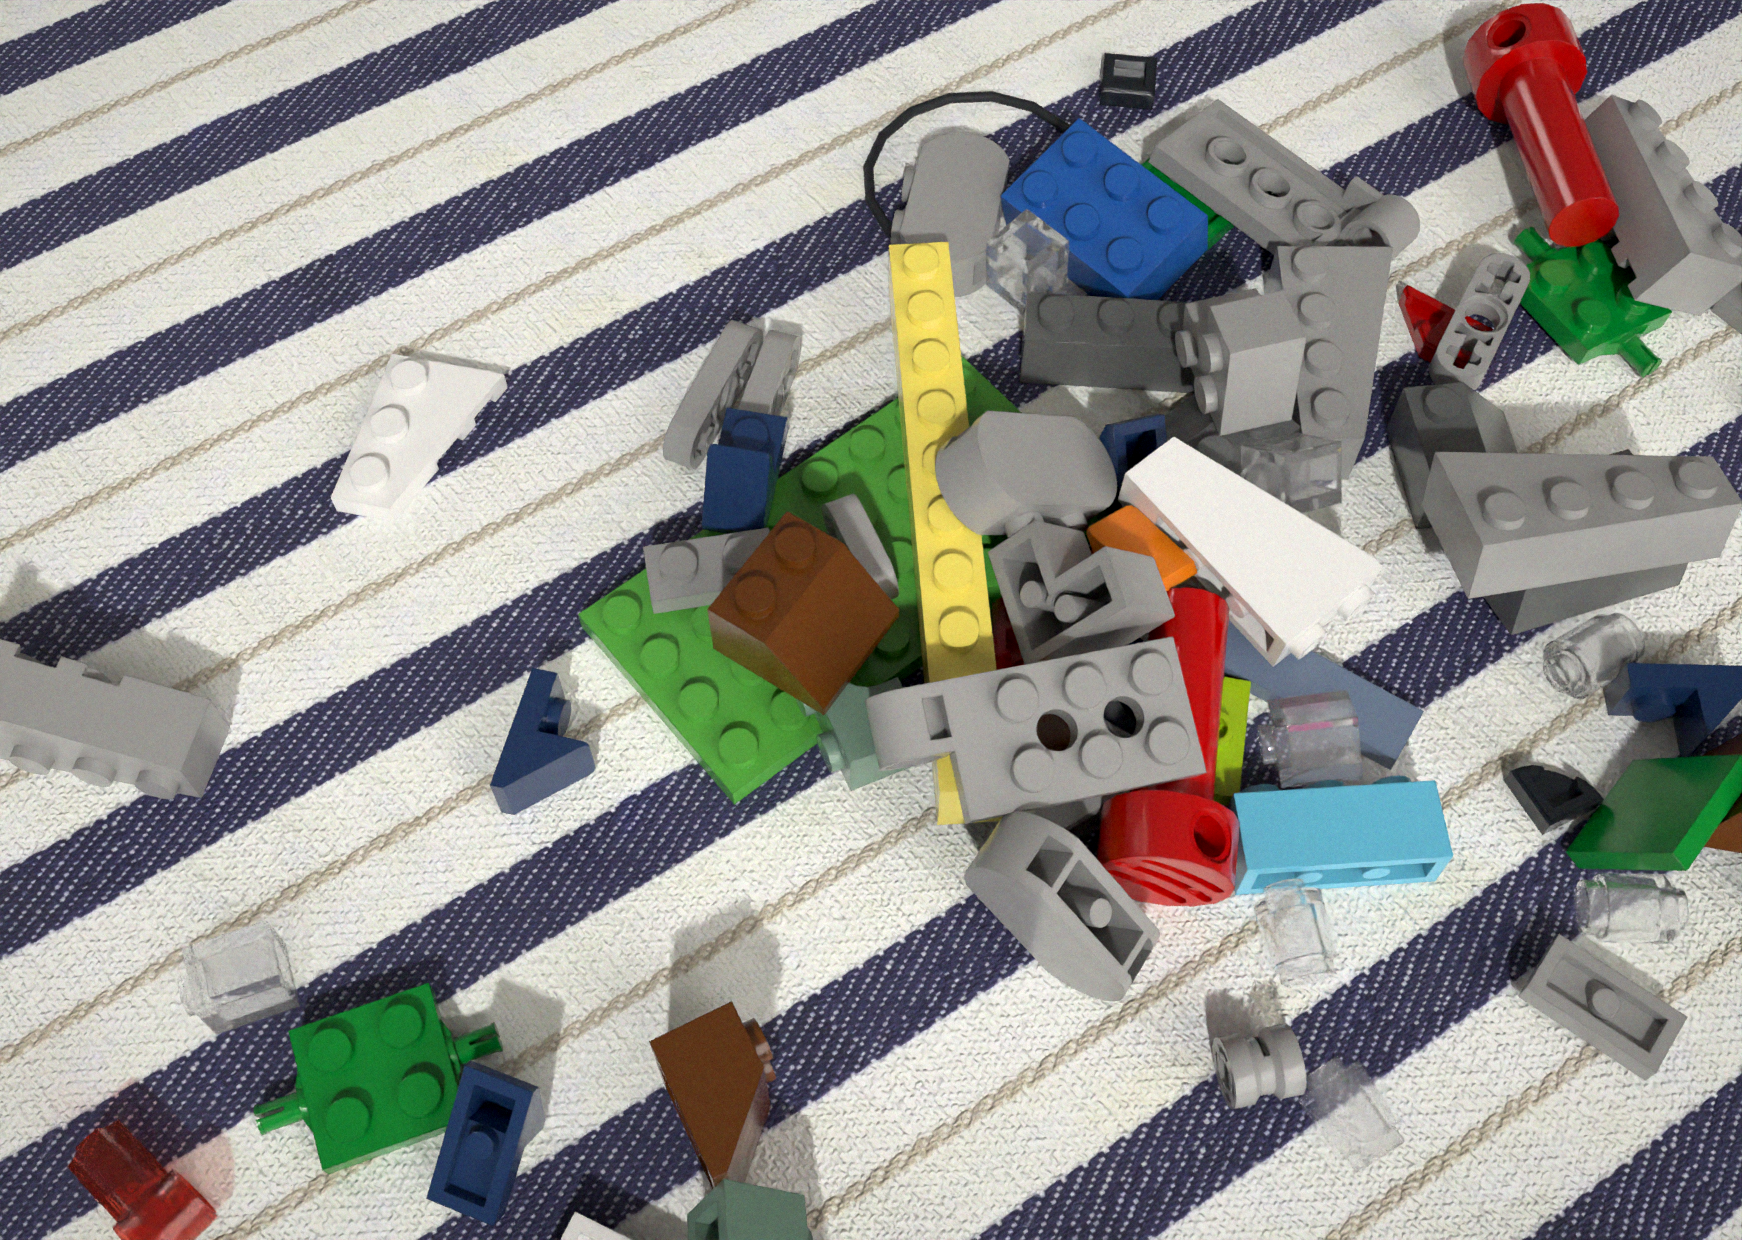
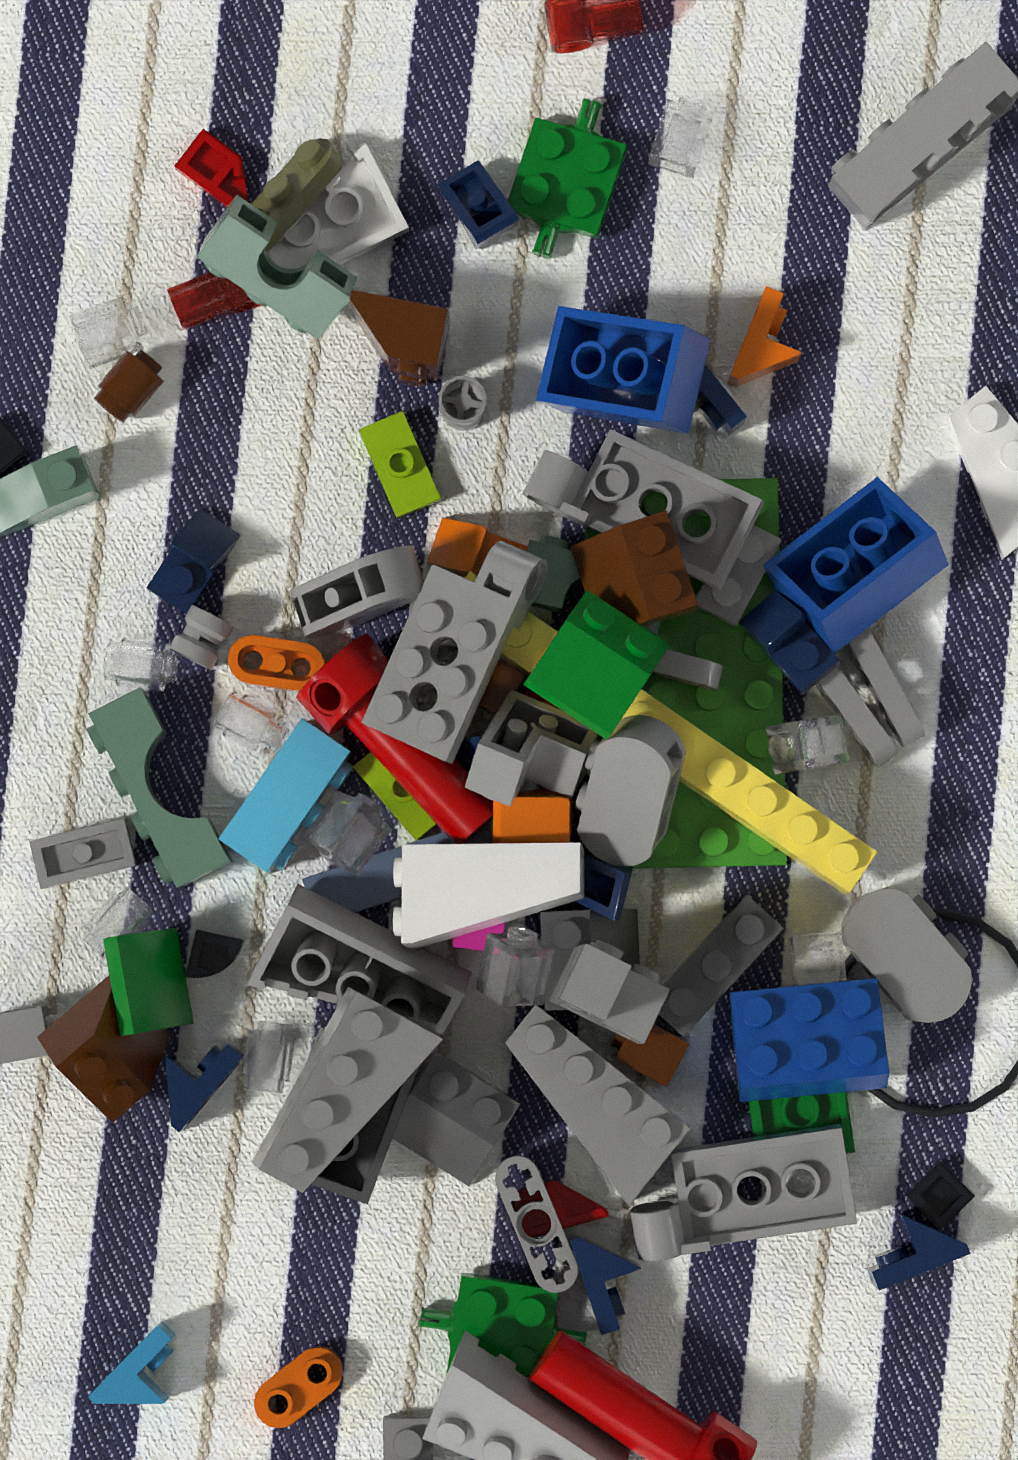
camera: 130 degrees right, 25 degrees up
(449, 727) = (759, 354): none -> orange slope
(575, 817) = (623, 369): none -> blue brick
(611, 461) = (857, 564): none -> blue brick
(711, 740) = (622, 479): none -> light grey hinge
(740, 969) = (463, 394): none -> light grey wheel
(832, 399) = (807, 744): none -> clear brick
(871, 1007) = (399, 465): none -> lime plate
(903, 845) = (463, 546): none -> orange slope
(935, 565) = (596, 664): none -> green slope
(1180, 1153) = (193, 561): none -> dark blue slope
(1197, 52) = (928, 1251): none -> dark blue slope
(1211, 963) = (277, 662): none -> orange plate
(1432, 644) = (327, 948): none -> light grey wedge
(1437, 1056) = (130, 735): none -> sand green arch
(1454, 250) = (597, 1266): none -> dark blue slope

